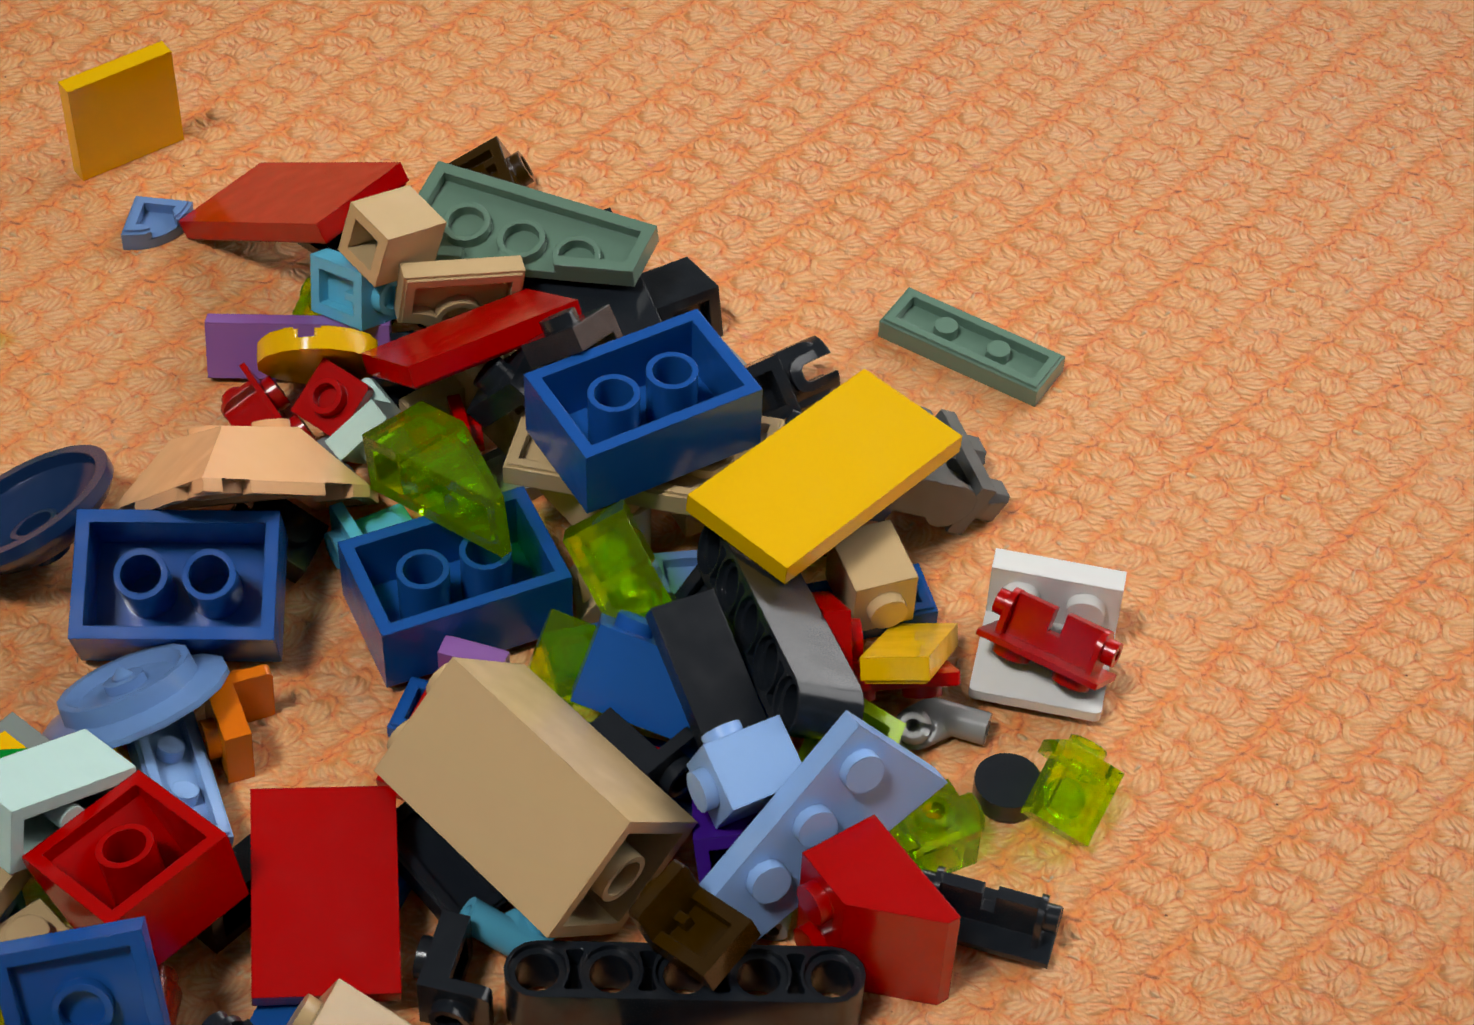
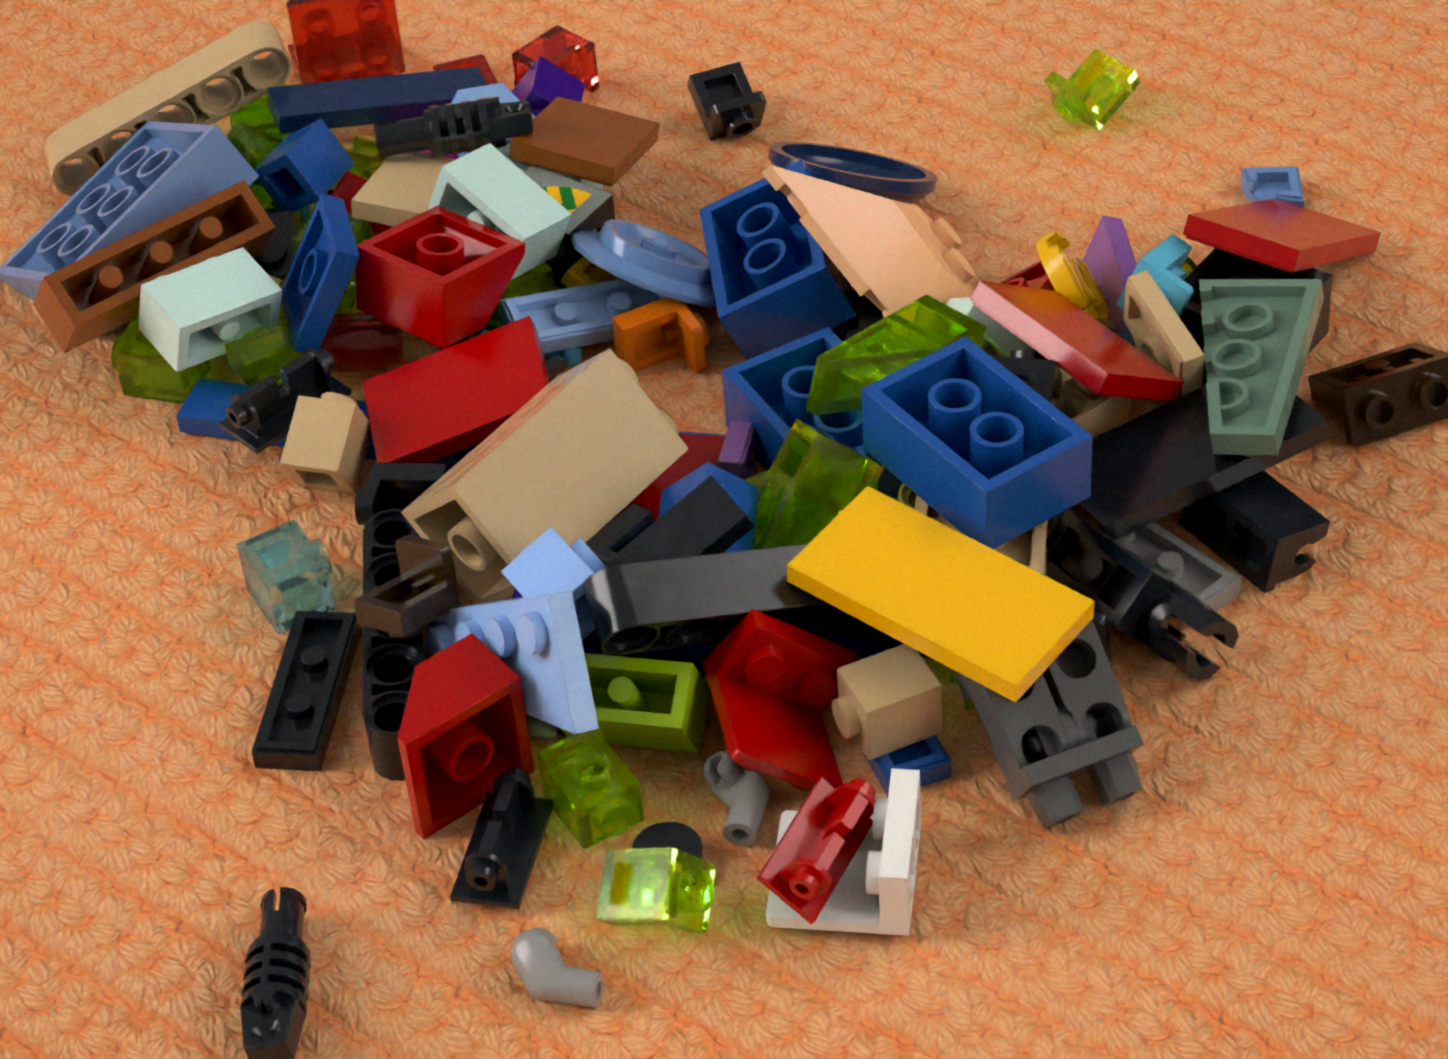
camera: 90 degrees right, 5 degrees down
(121, 110) = (1379, 116): yellow tile -> none
(390, 231) = (1181, 255): tan brick -> none
(571, 334) = (1041, 363): black bracket -> none
(908, 653) = (771, 720): yellow tile -> none
(971, 346) = (1308, 789): sand green tile -> none
(1150, 889) = (547, 975): none -> light grey arm

